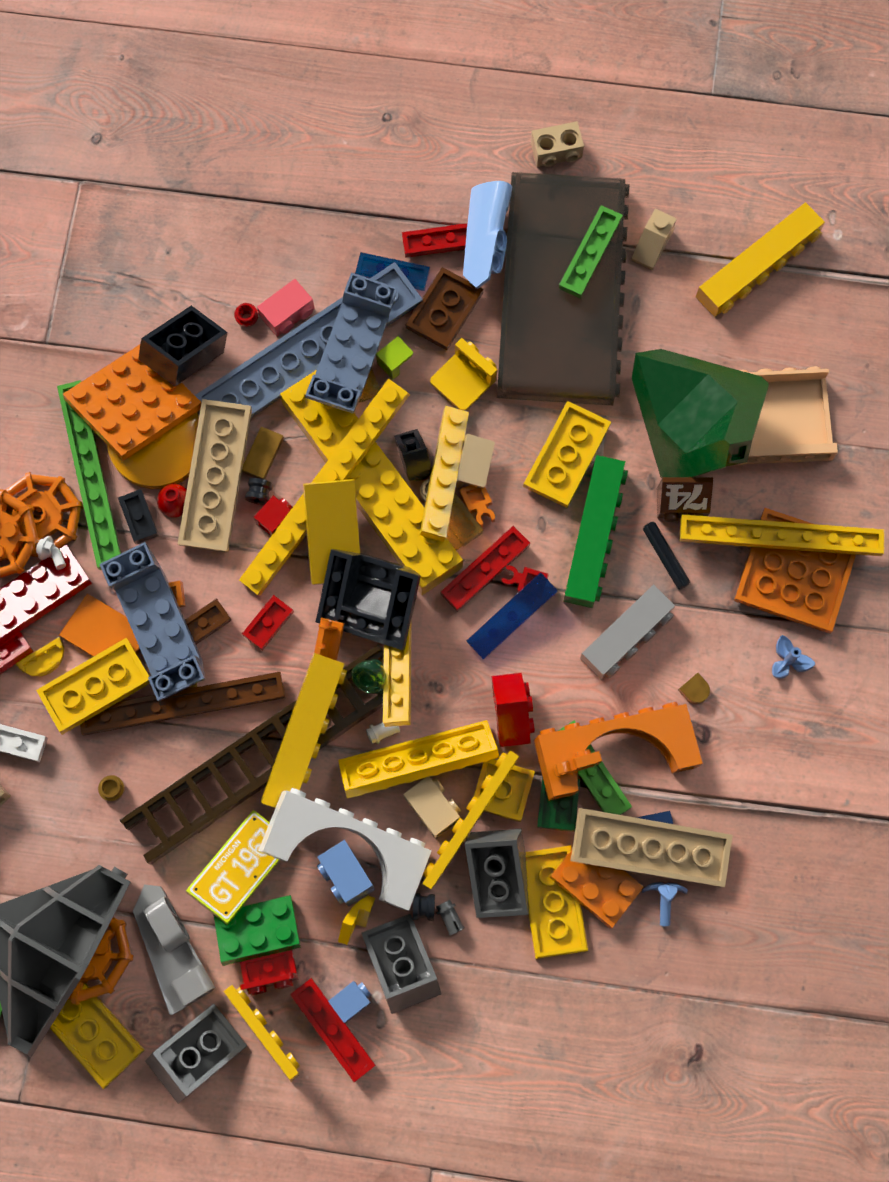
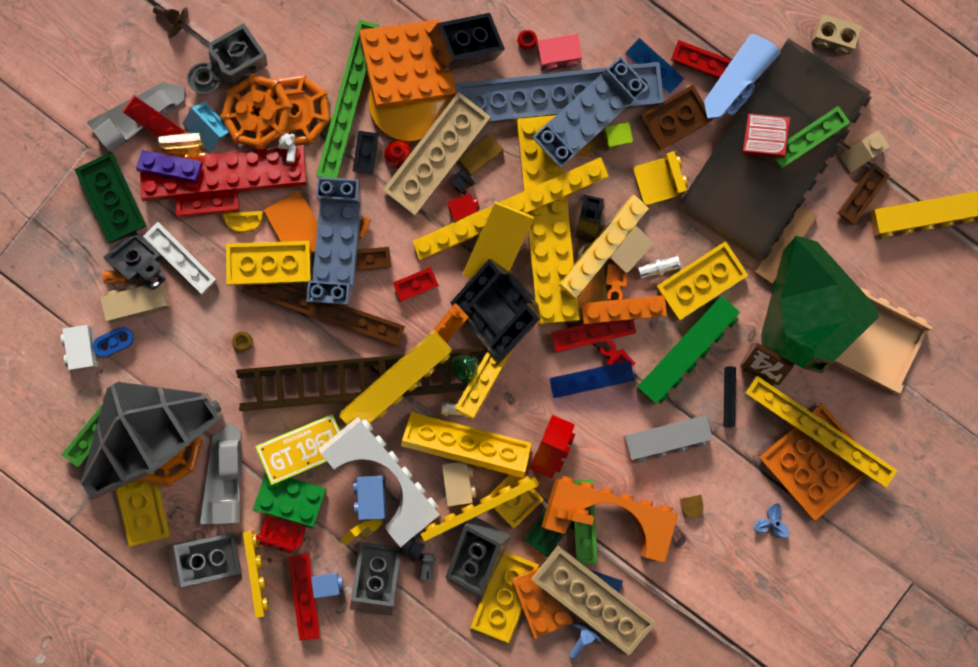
camera: 25 degrees right, 10 degrees up
(503, 526) = (624, 309): none -> orange plate
(515, 464) = (659, 267): none -> white pin
(546, 272) = (766, 135): none -> tile
(632, 342) = (798, 227): none -> medium nougat tile
(678, 281) = (863, 194): none -> reddish brown plate

